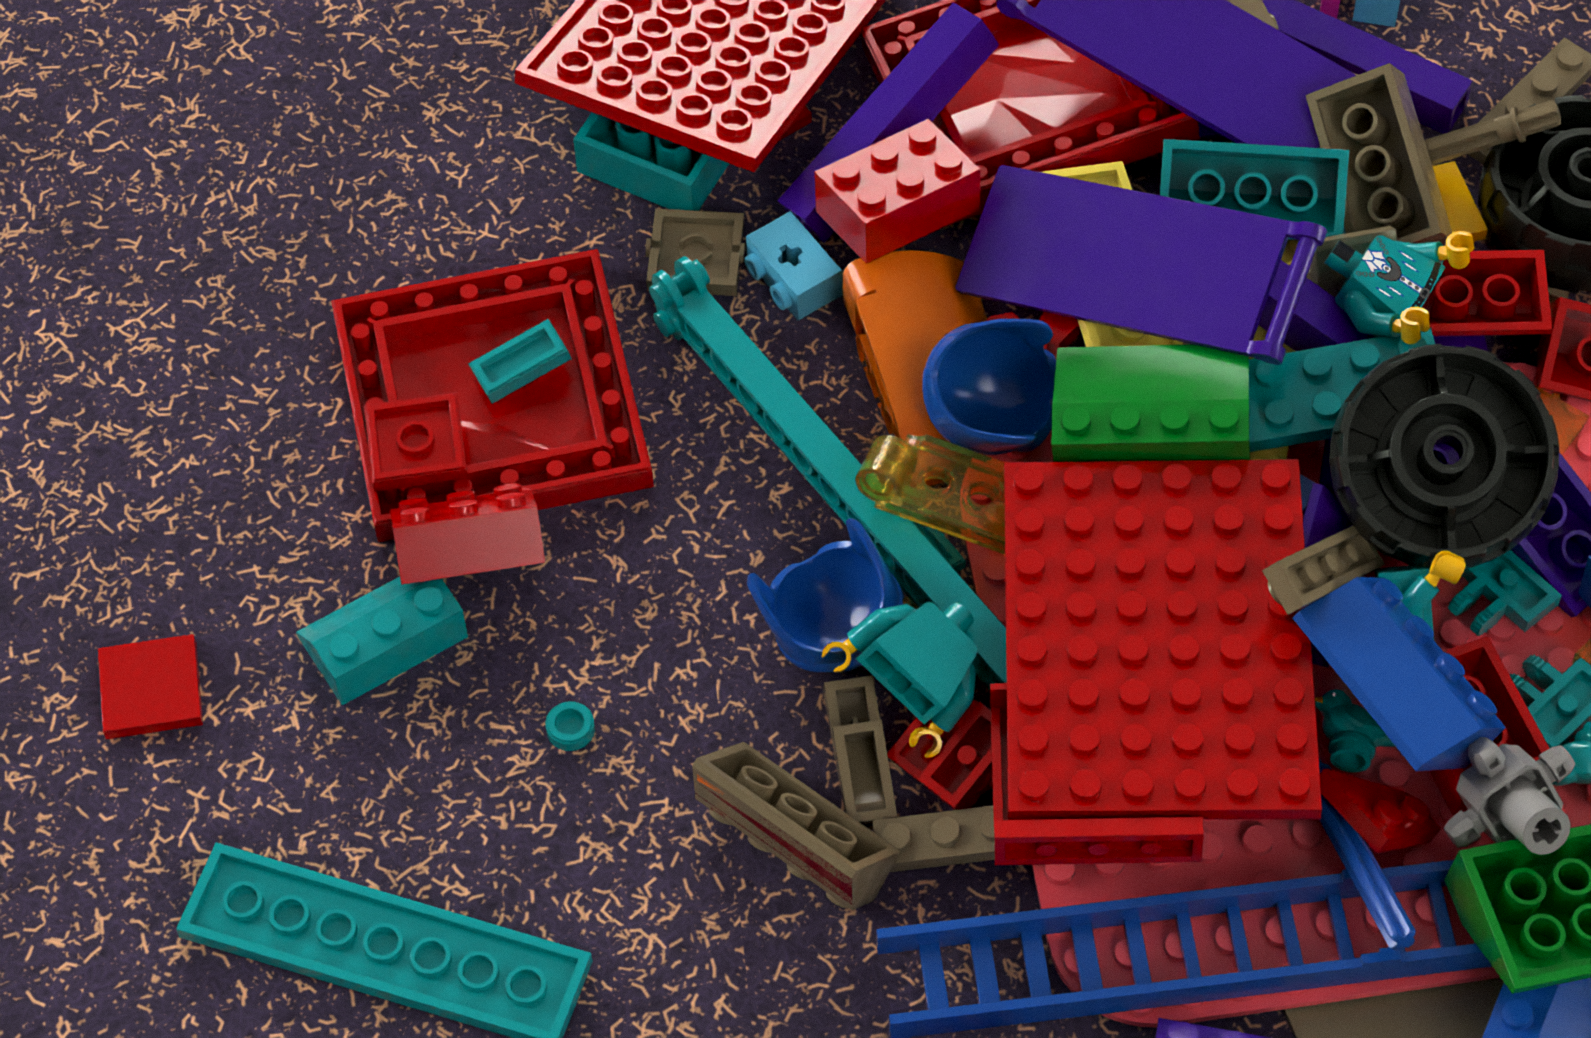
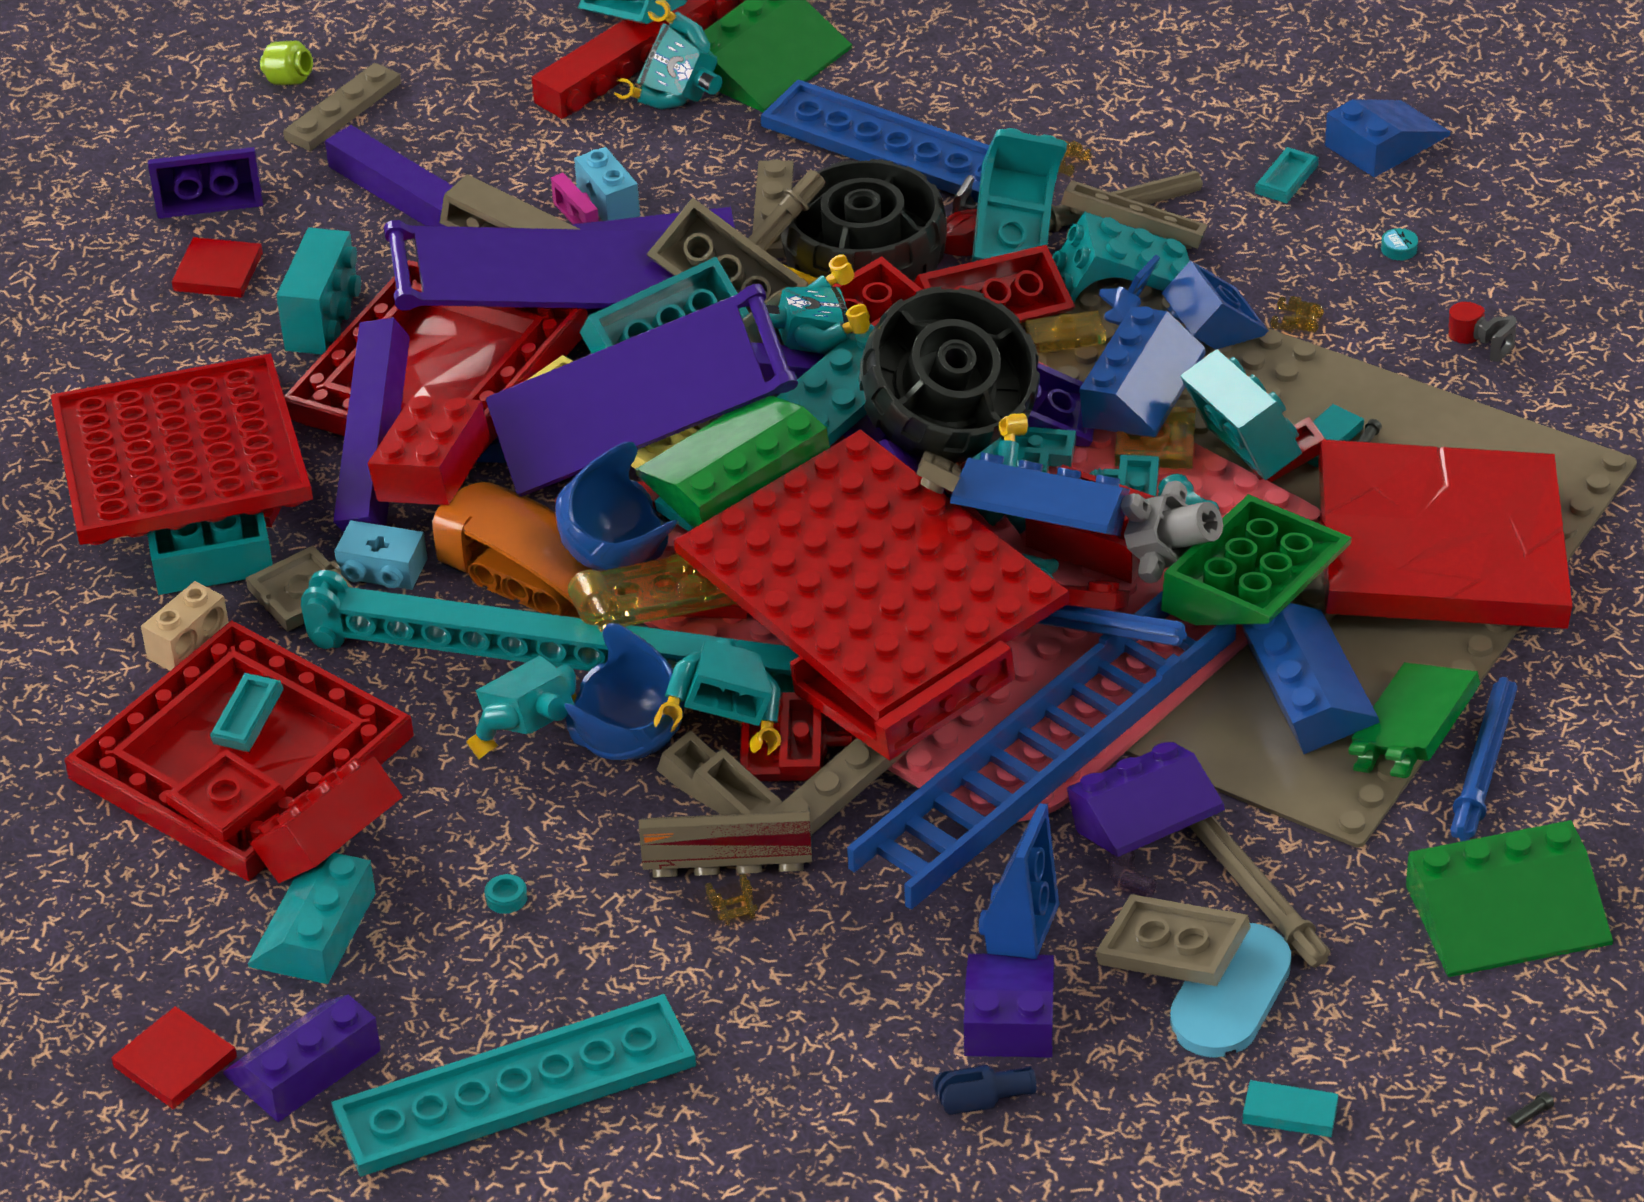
camera: 40 degrees left, 15 degrees down
(243, 772) = (307, 1056): none -> dark purple slope
(556, 225) = (183, 625): none -> tan brick
(752, 533) = (523, 701): none -> teal torso
(773, 894) = (719, 904): none -> clear yellow piece

